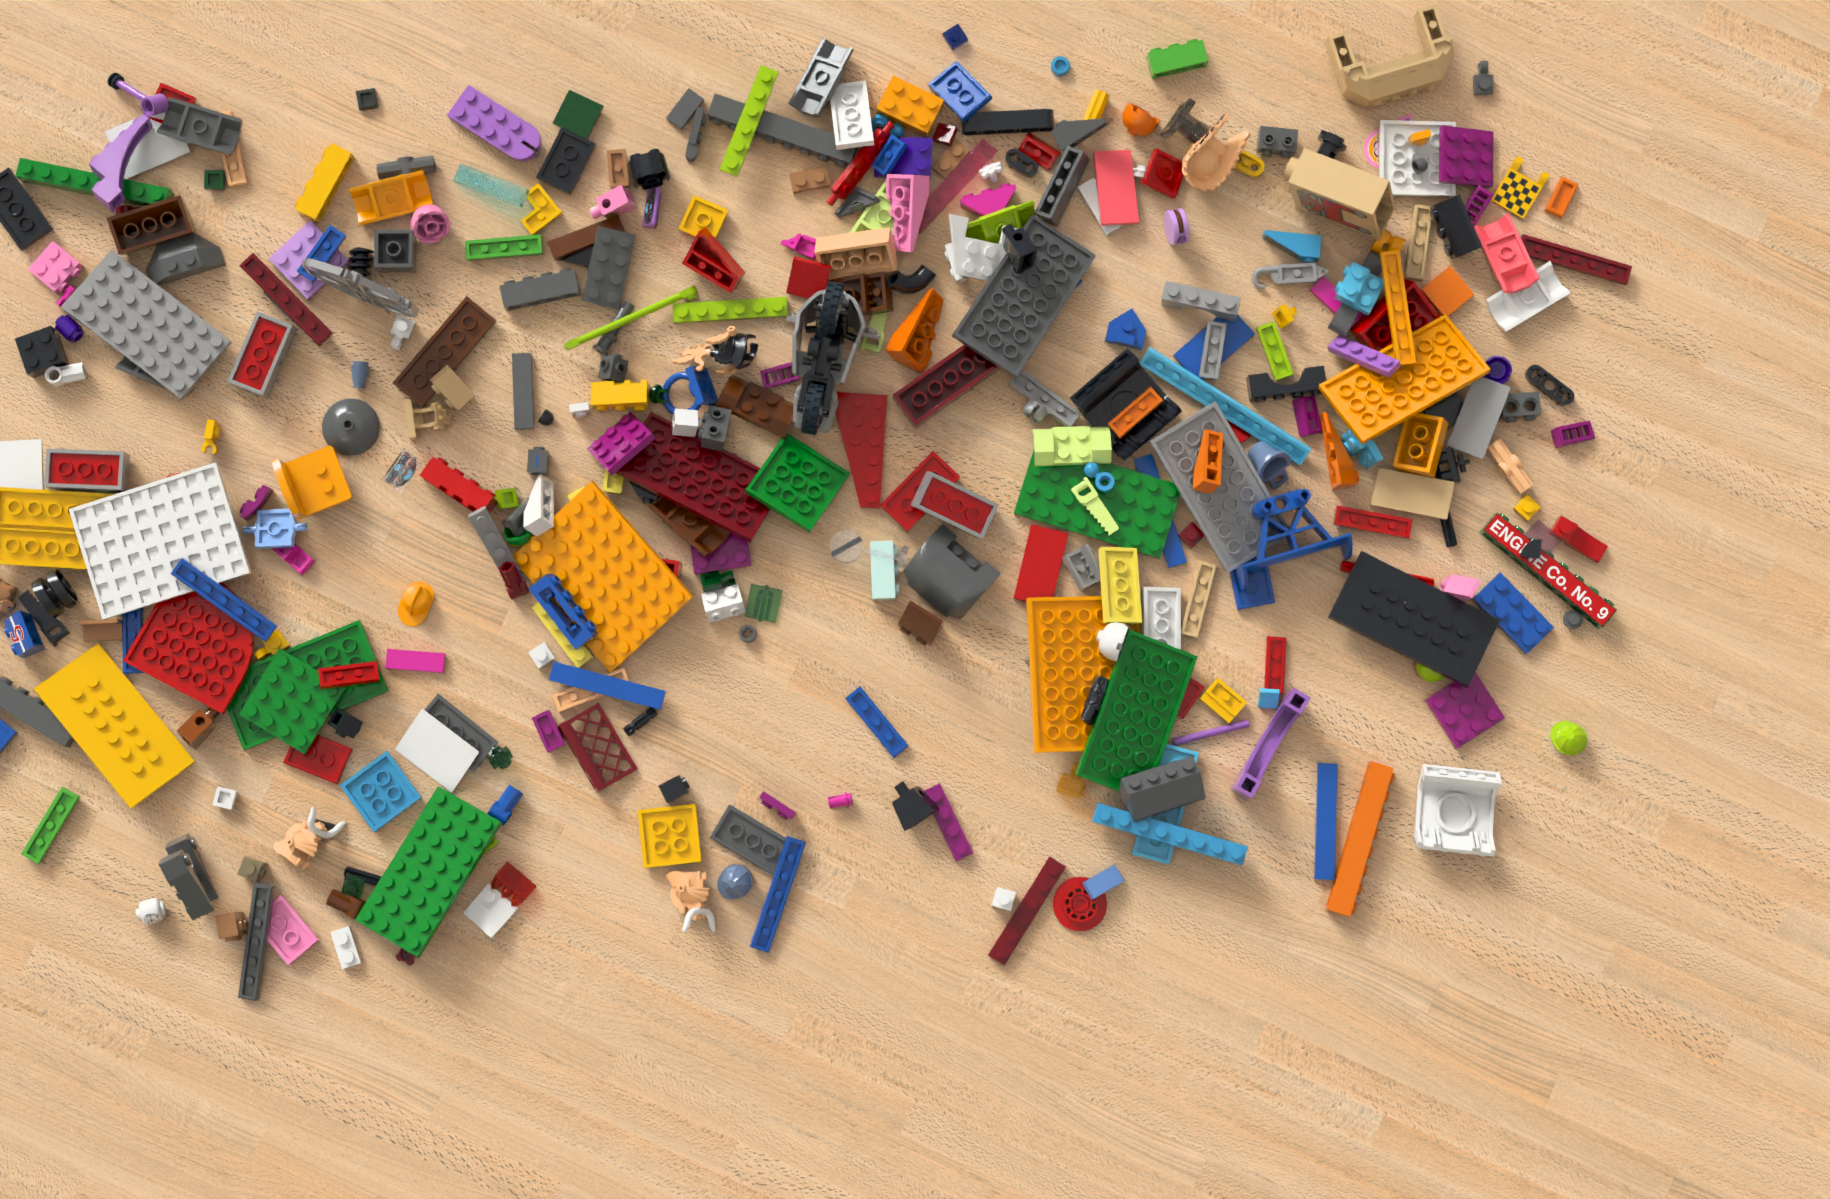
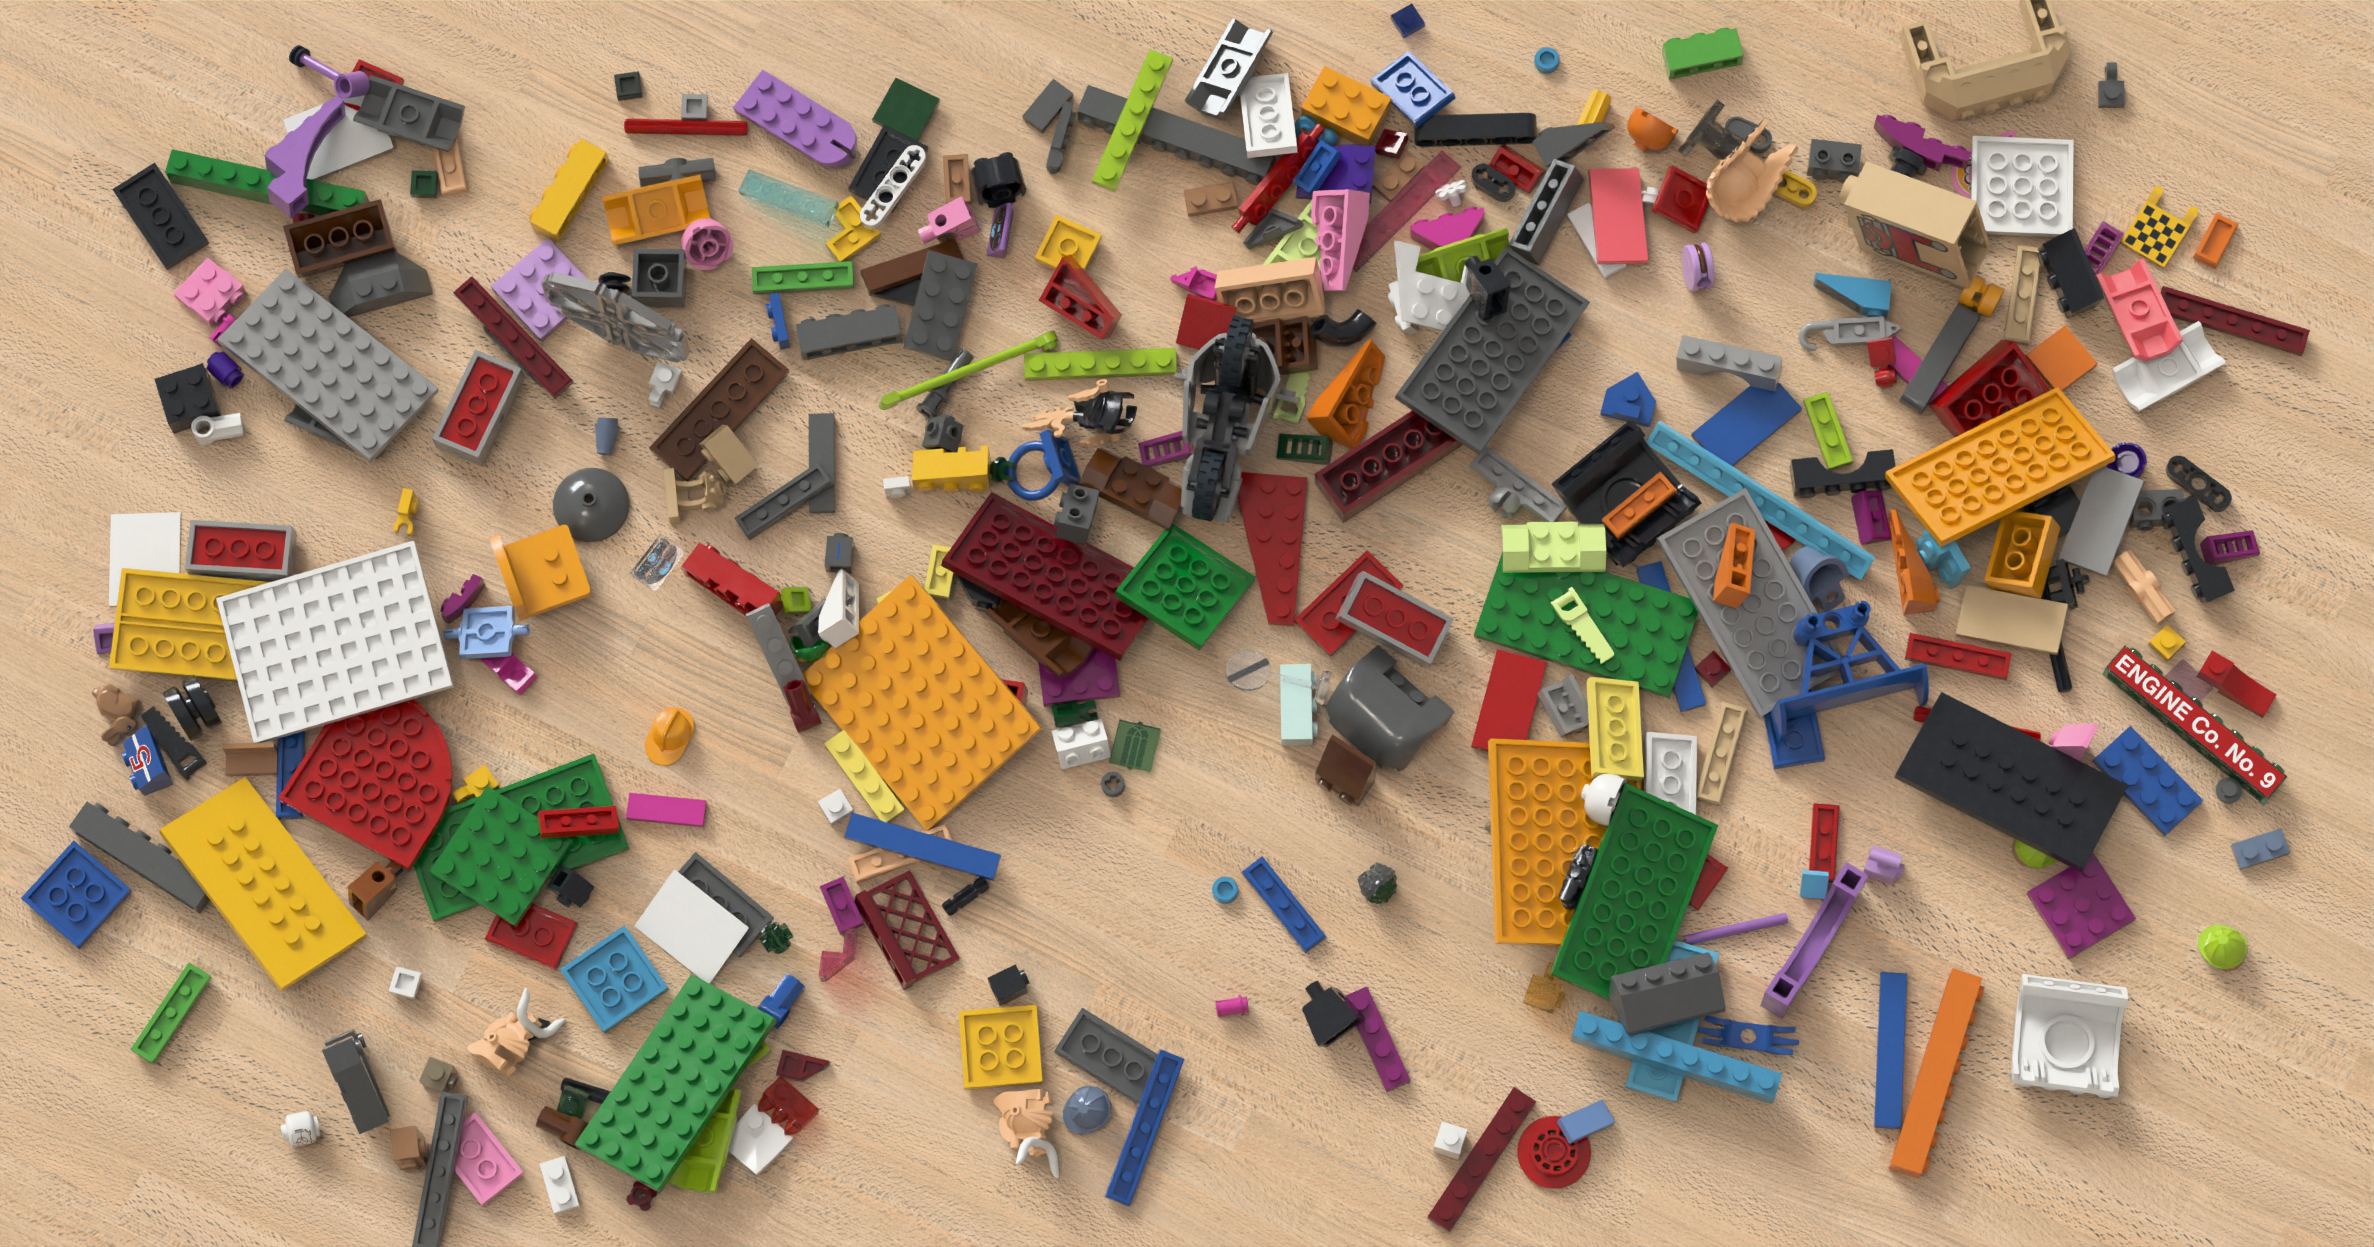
camera: 10 degrees right, 10 degrees down
(224, 599) = (417, 719): blue tile -> none
(324, 249) = (574, 264): blue plate -> none
(411, 131) = (686, 127): none -> red axle
(417, 116) = (694, 107): none -> light grey plate
(455, 925) = (708, 1155): none -> lime piece
(484, 275) = (775, 311): none -> blue plate
(495, 421) = (784, 500): none -> dark grey tile
(520, 853) = (799, 1066): none -> dark red tile
(543, 775) = (834, 962): none -> clear pink slope
(546, 418) = (851, 498): black hinge -> none
(550, 587) = (844, 711): blue brick -> none
(567, 175) = (893, 187): none -> white beam
(621, 443) = (951, 529): magenta plate -> none
(685, 422) = (1037, 505): white brick -> none
(769, 801) = (1155, 1016): magenta plate -> none
(833, 712) = (1225, 890): none -> dark azure tile
(900, 374) = (1313, 458): none -> dark green slope
(946, 705) = (1378, 883): none -> dark grey piece
(1092, 470) = (1580, 579): dark azure plate -> none
(1211, 118) = (1743, 128): none -> dark grey piece
(1212, 350) = (1744, 427): light grey plate -> none
(1223, 700) = (1752, 886): yellow plate -> none
(1232, 818) = (1764, 1036): none -> blue piece
(1284, 315) = (1841, 385): yellow tile -> none
(1314, 292) = (1883, 354): none -> red plate
(1319, 683) = (1883, 865): none -> lavender brick
(1334, 123) = (1910, 137): none -> magenta slope
(1358, 288) = (1940, 349): medium azure plate -> none
(1364, 356) = (1946, 436): medium lavender plate -> none
(1397, 307) = (1991, 373): light orange plate -> none
(1419, 165) = (2024, 194): dark grey hinge -> none
(1420, 138) = (2024, 158): light orange plate -> none
(1465, 156) = (2086, 184): magenta plate -> none
(1532, 549) = (2171, 694): black tile -> none
(1540, 417) = (2184, 520): none -> black arch
(1596, 663) = (2260, 849): none -> sand blue plate

